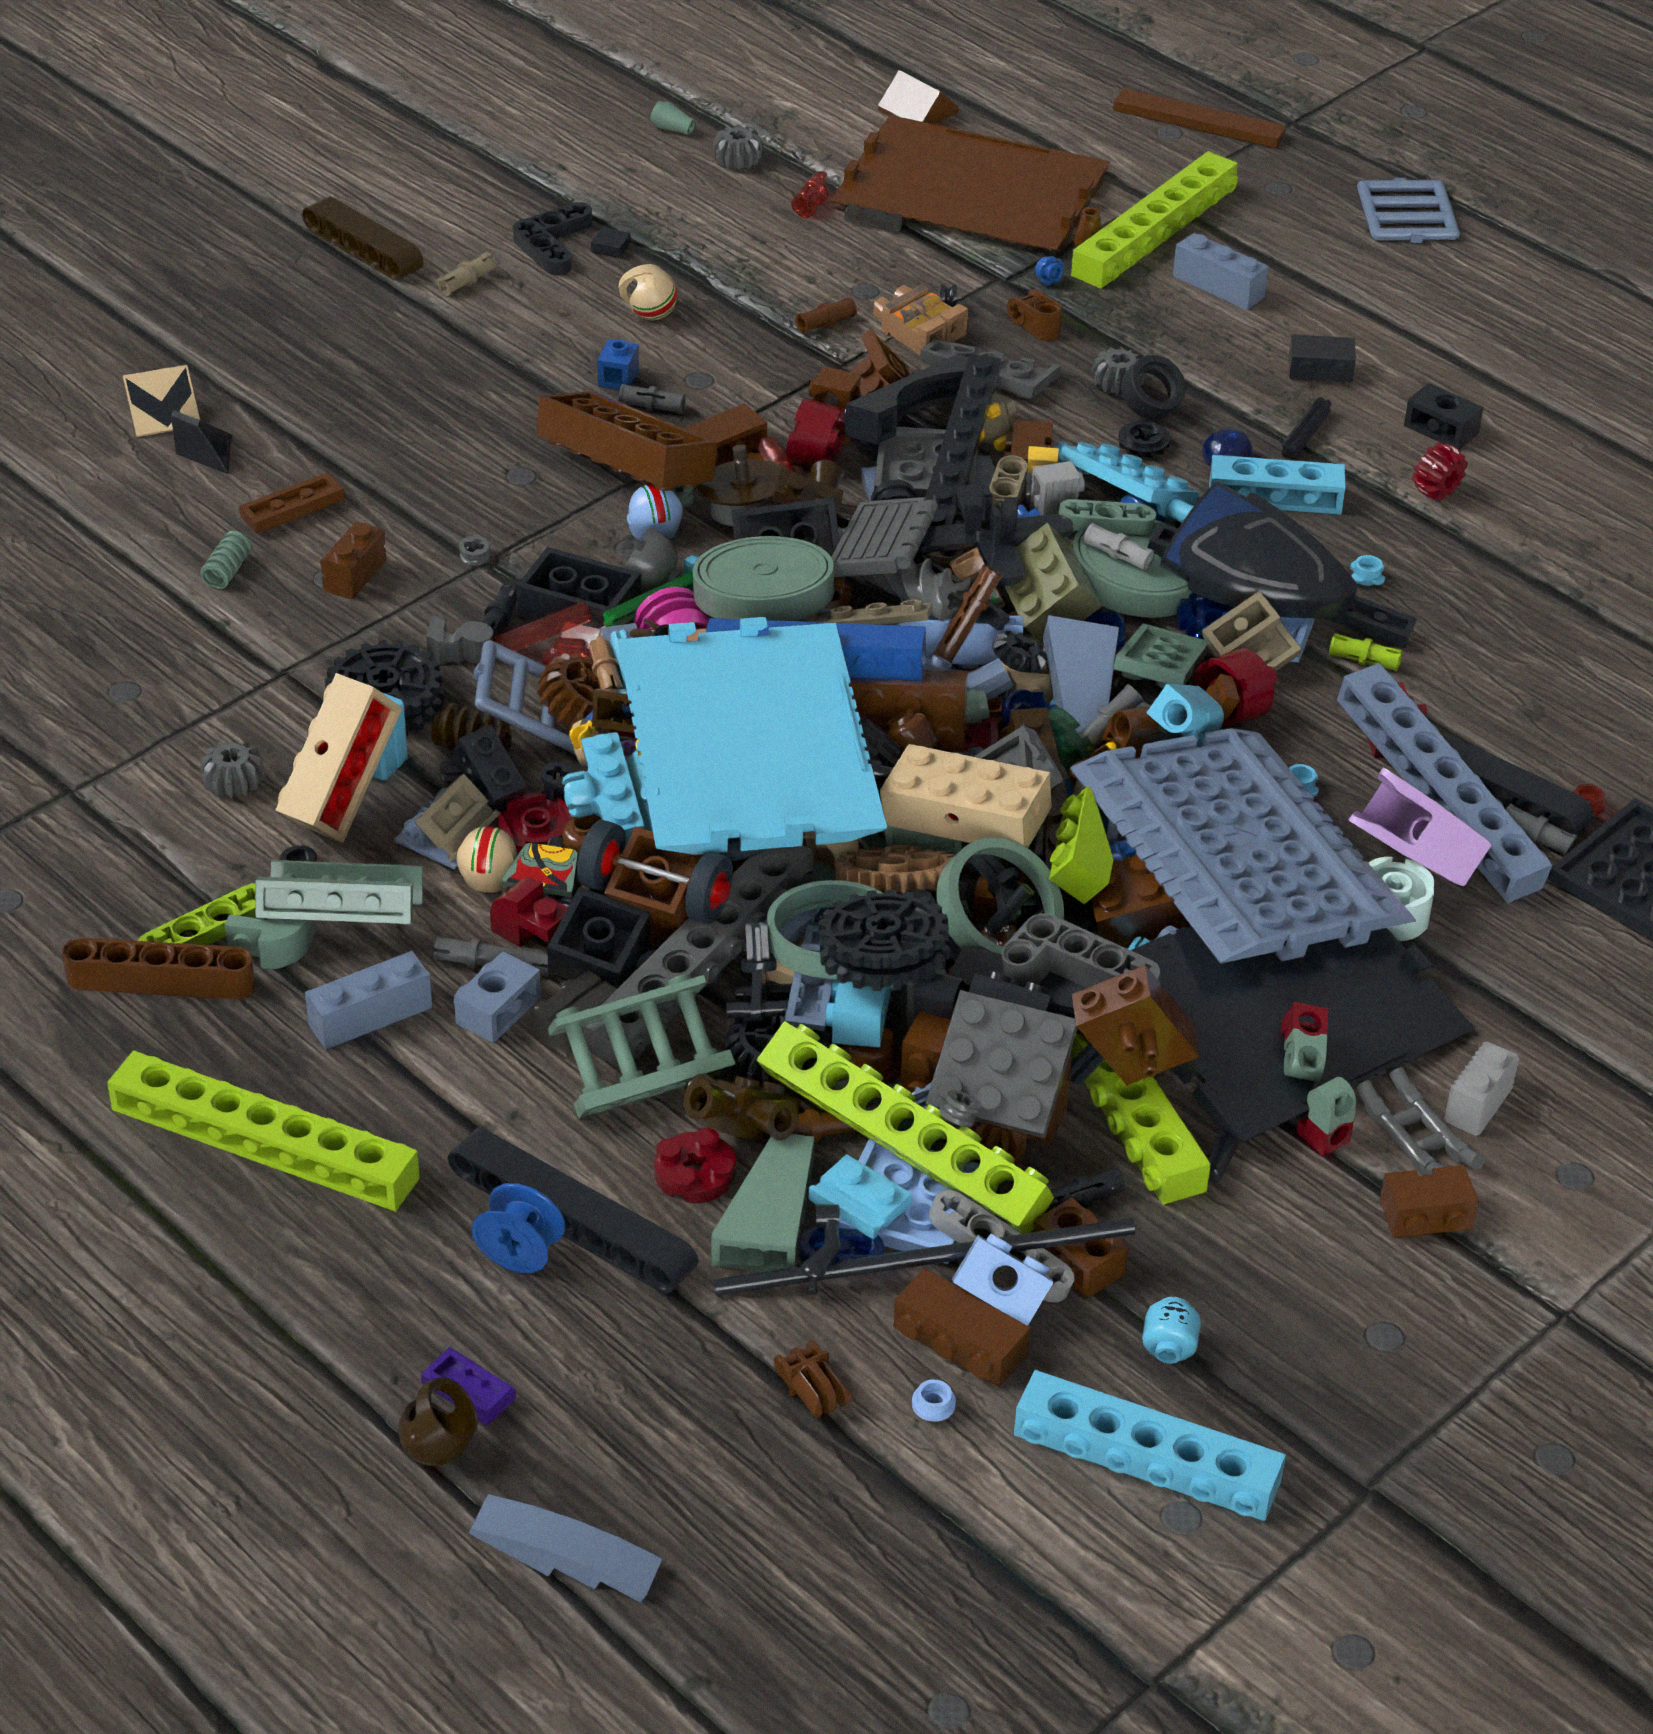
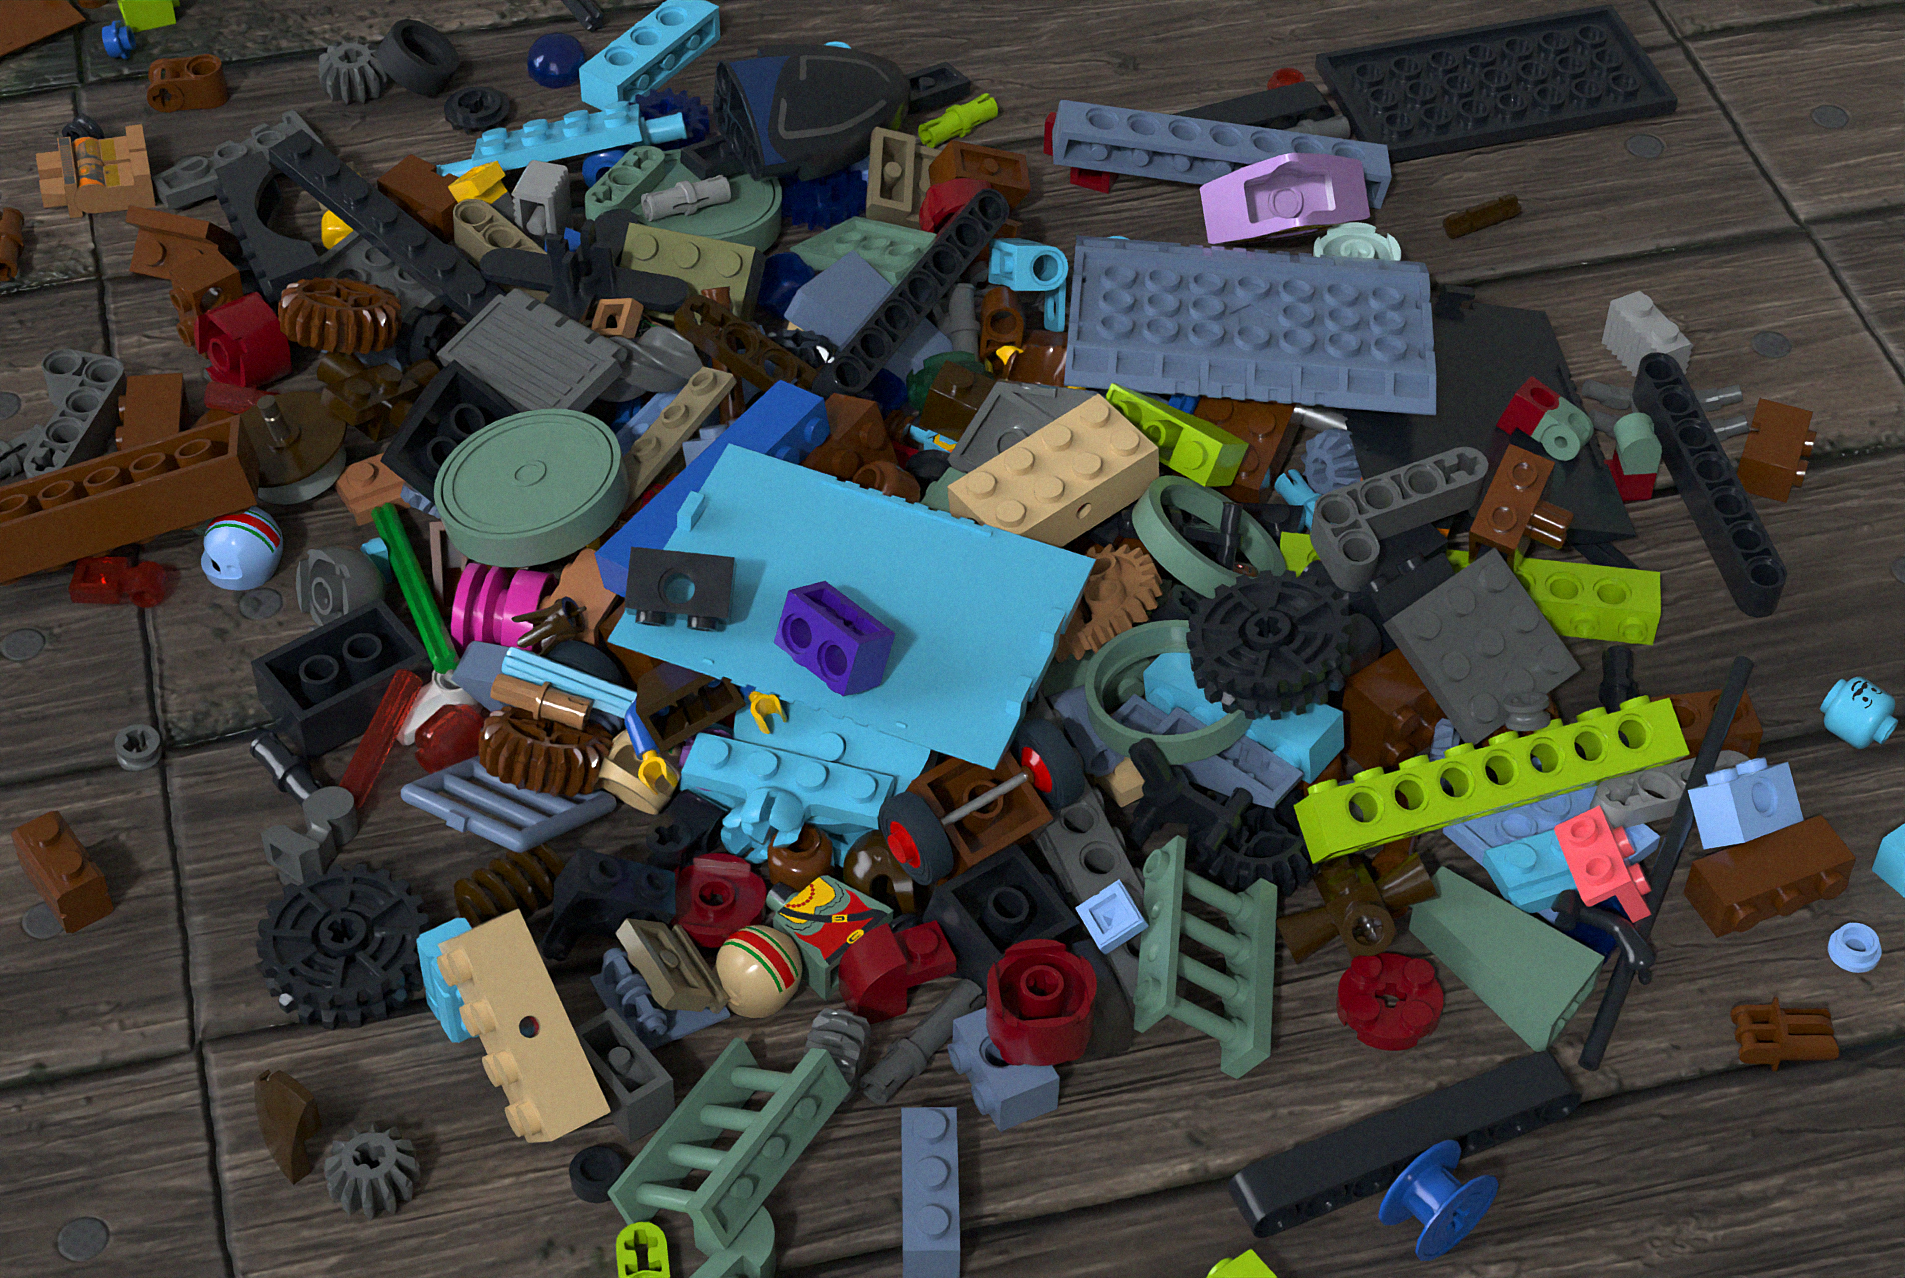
camera: 60 degrees left, 5 degrees up
(240, 713) = (286, 1120): none -> dark brown brick
(363, 828) = (628, 1075): none -> dark grey brick
(442, 912) = (846, 1040): none -> dark grey gear
(523, 970) = (1040, 1003): none -> dark red brick
(592, 481) = (106, 578): none -> clear red plate
(625, 980) = (1112, 917): none -> light blue tile
(667, 640) = (655, 569): none -> black brick
(680, 720) = (834, 638): none -> dark purple brick
(697, 405) = (87, 414): none -> dark grey beam
(851, 447) = (339, 315): none -> reddish brown gear
(874, 1215) = (1601, 863): none -> coral bracket
(965, 622) = (757, 346): none -> dark brown beam
(1080, 680) = (912, 296): none -> black beam
(1298, 679) = (1001, 168): none -> reddish brown panel
(1342, 1168) = (1710, 486): none -> black beam
(1547, 956) = (1481, 216): none -> dark brown axle

